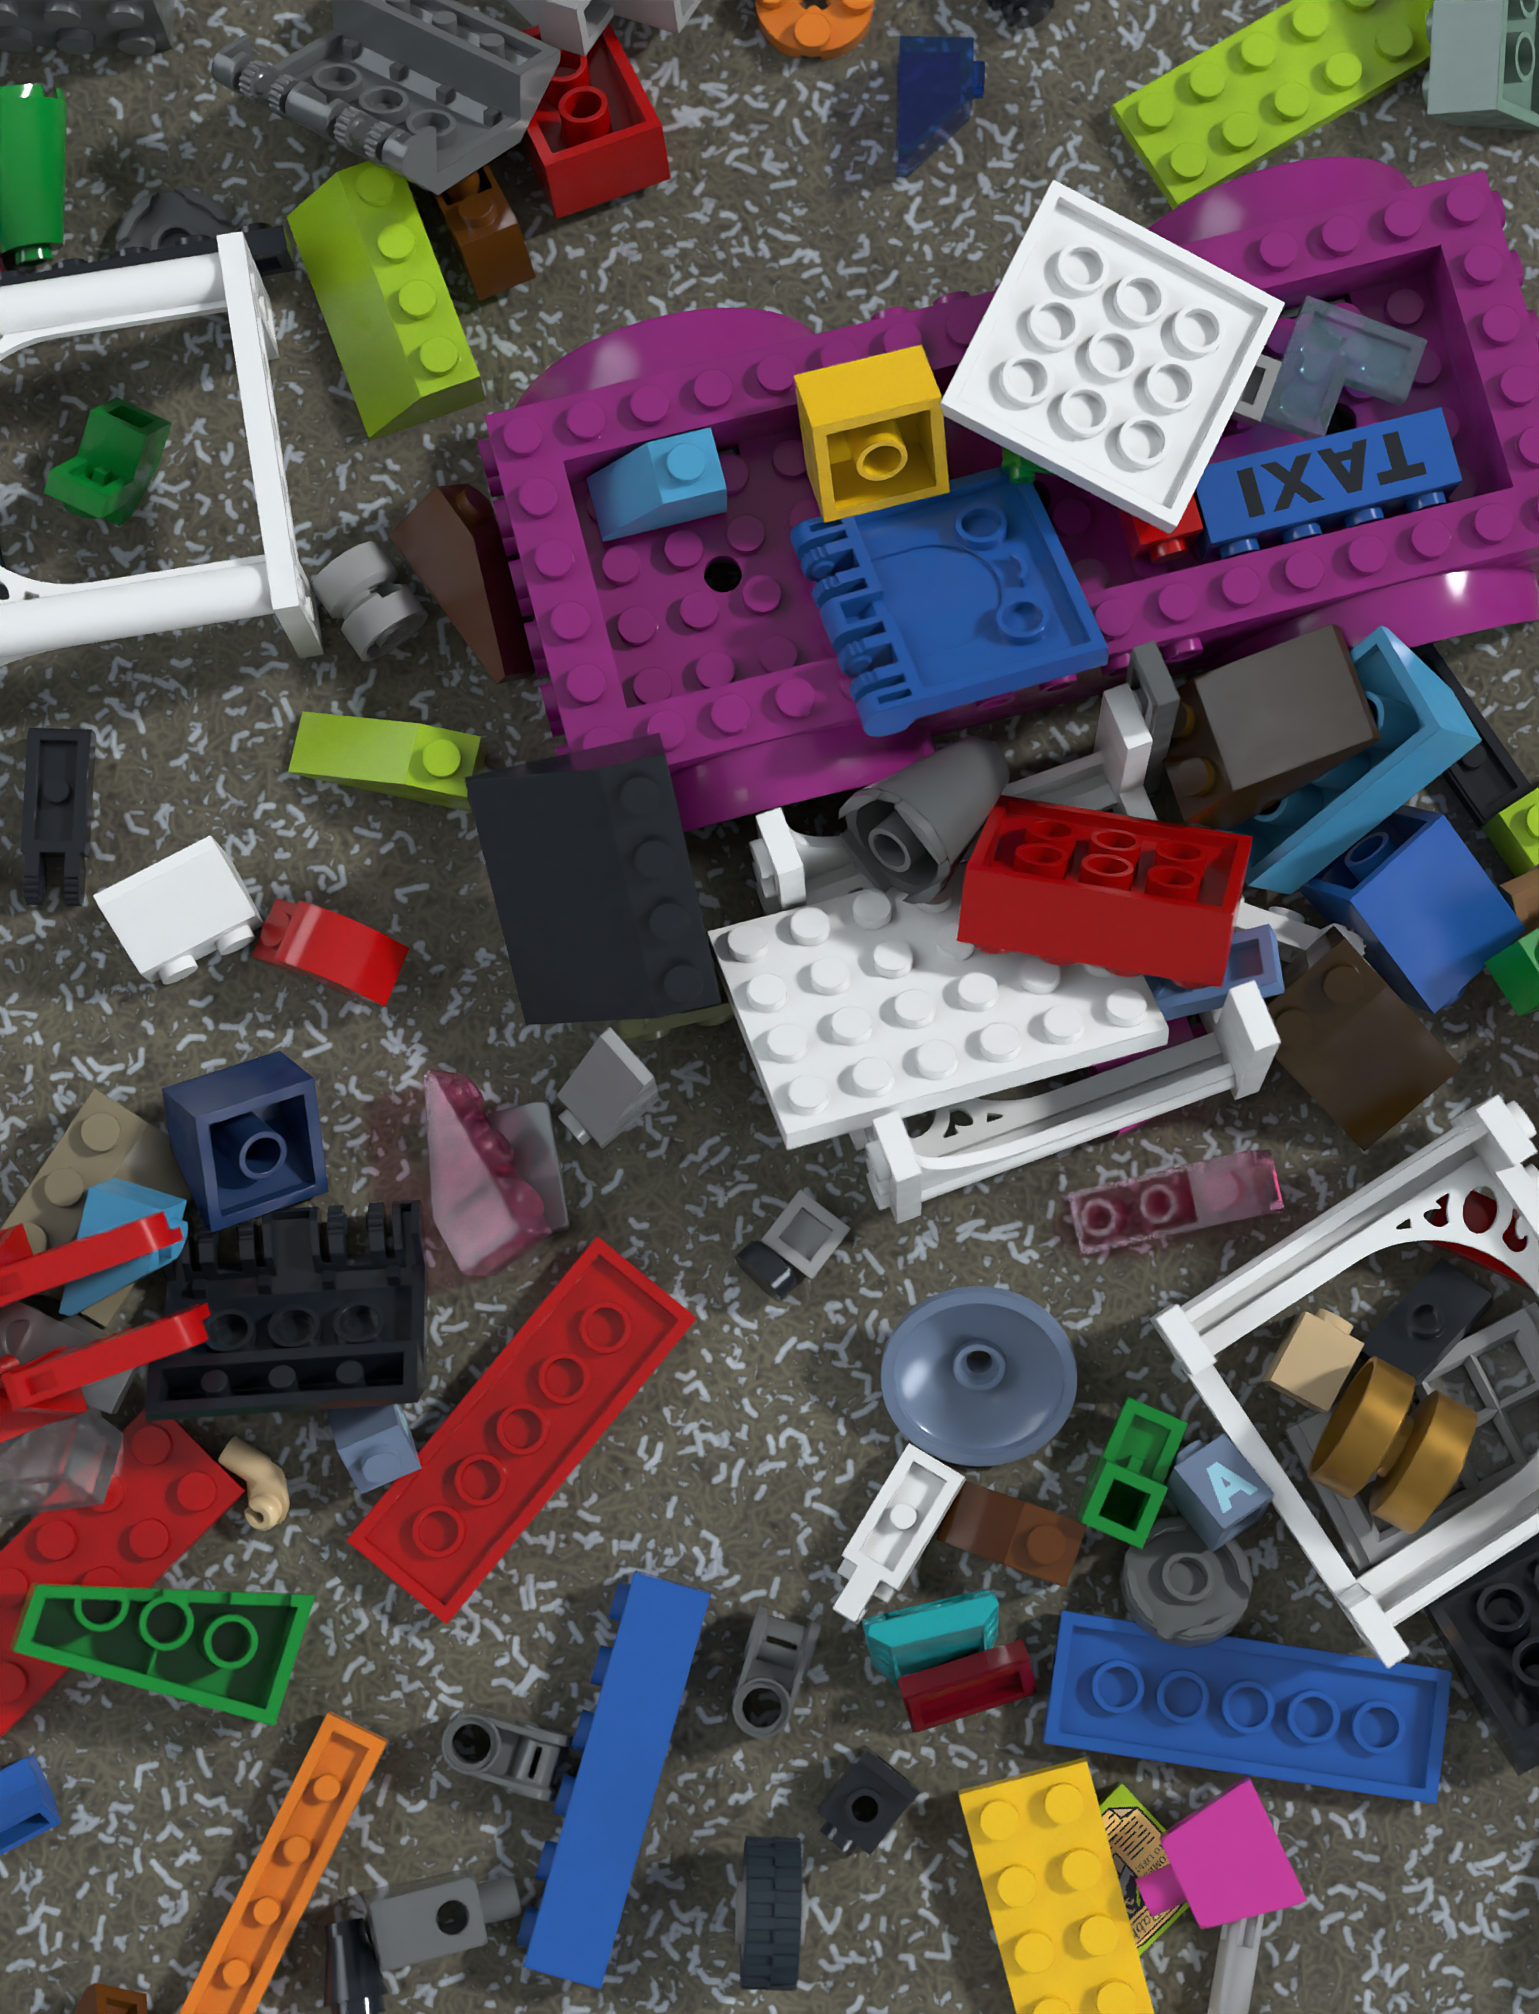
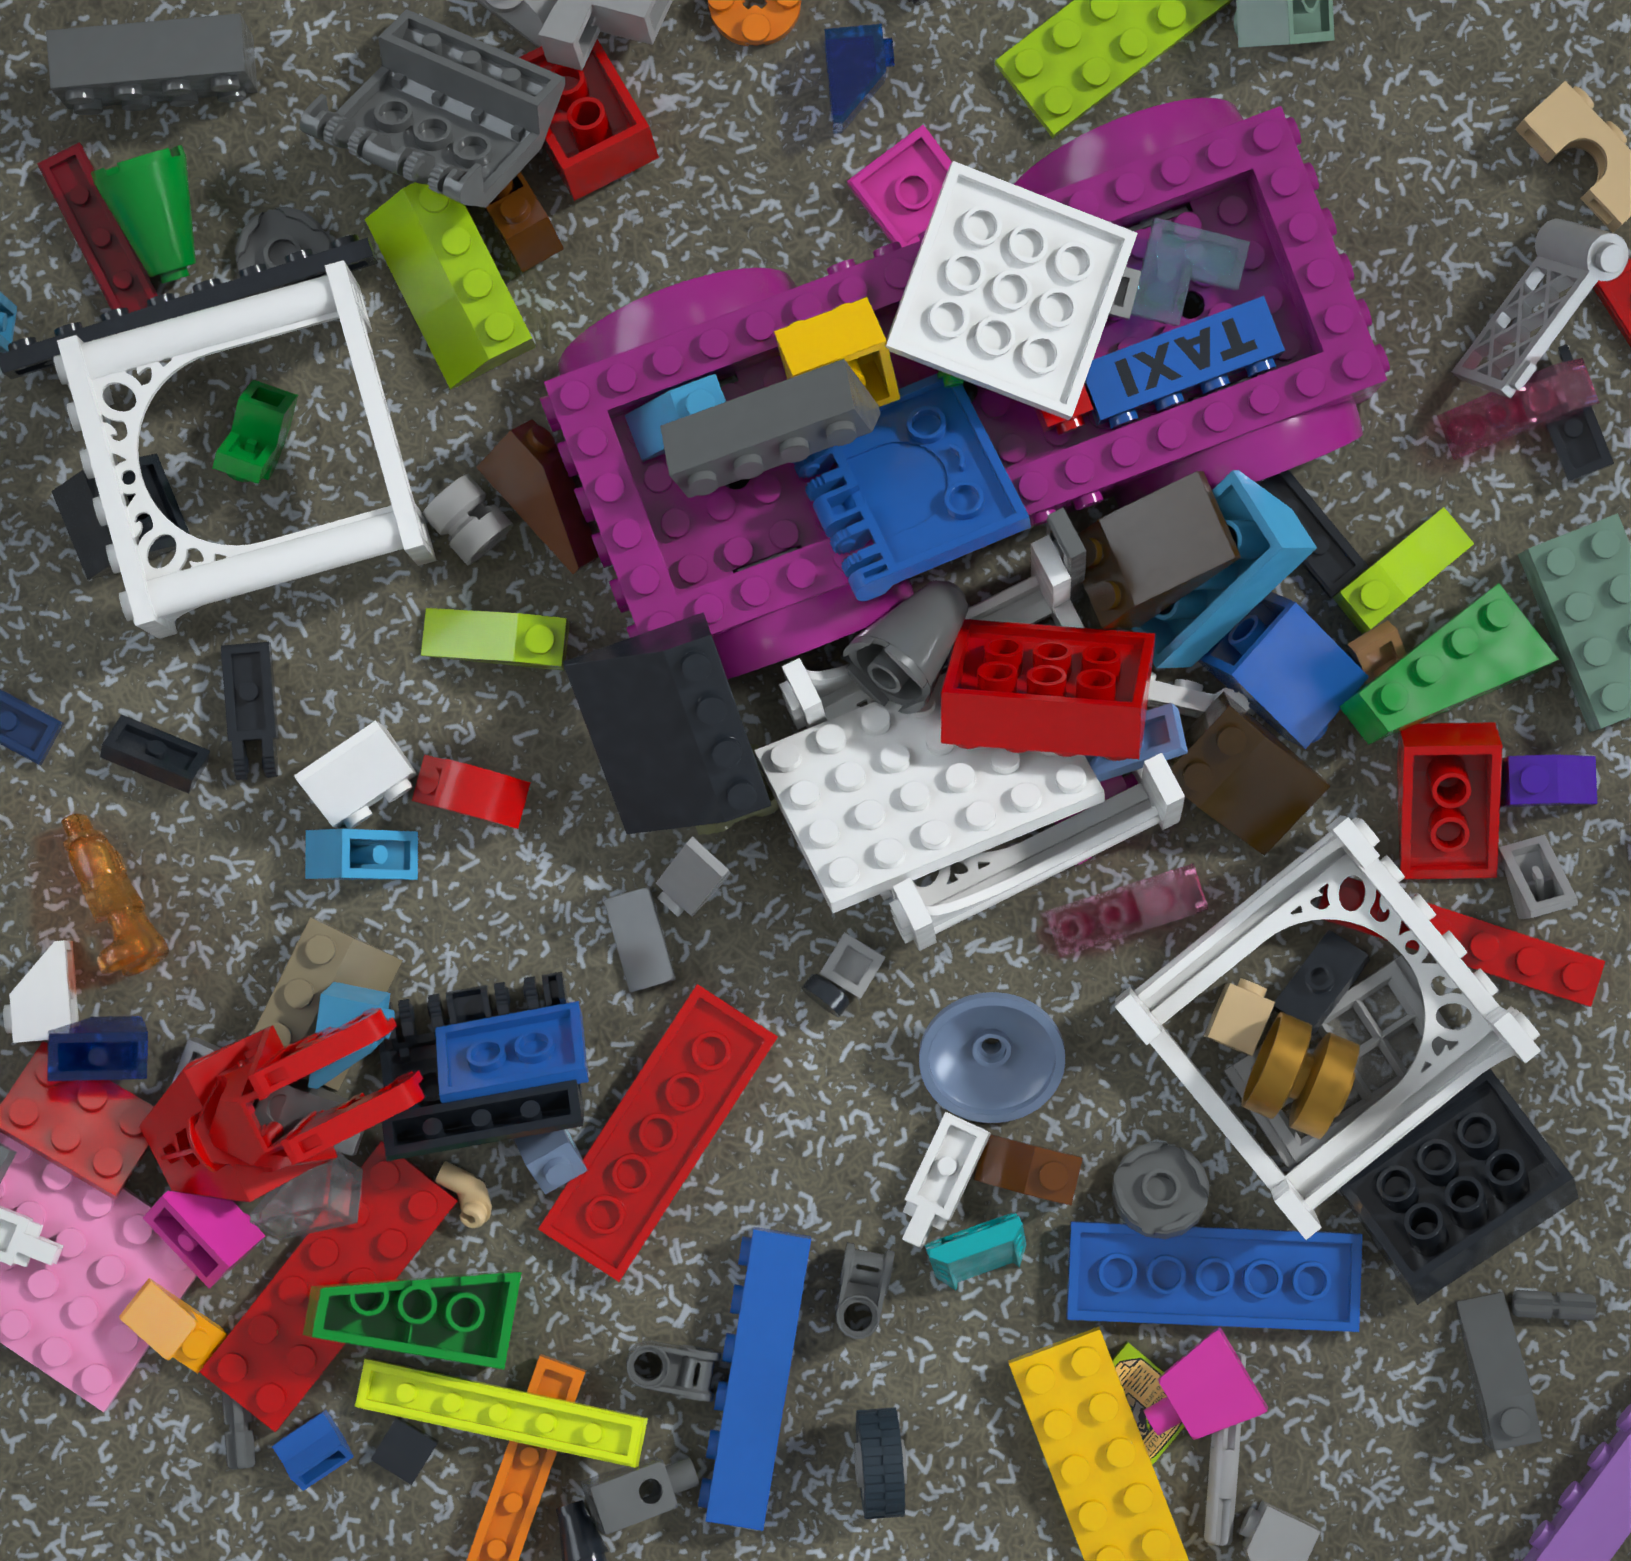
camera: 10 degrees left, 5 degrees up
(131, 1822) = (404, 1450): none -> black tile
(175, 1017) = (361, 854): none -> dark azure slope
(247, 1139) = (428, 940): dark blue slope -> none
(267, 1785) = (501, 1412): none -> neon yellow tile
(337, 1297) = (511, 1052): none -> blue plate
(475, 1188) = (601, 956): clear pink slope -> none
(771, 495) = (768, 428): none -> dark grey slope
(870, 1777) = (941, 1358): black brick -> none
(967, 1686) = (1007, 1284): dark red tile -> none
(974, 240) = (903, 186): none -> dark pink tile
(1130, 1473) = (1111, 1116): green brick -> none
(1217, 1490) = (1176, 1122): sand blue brick -> none

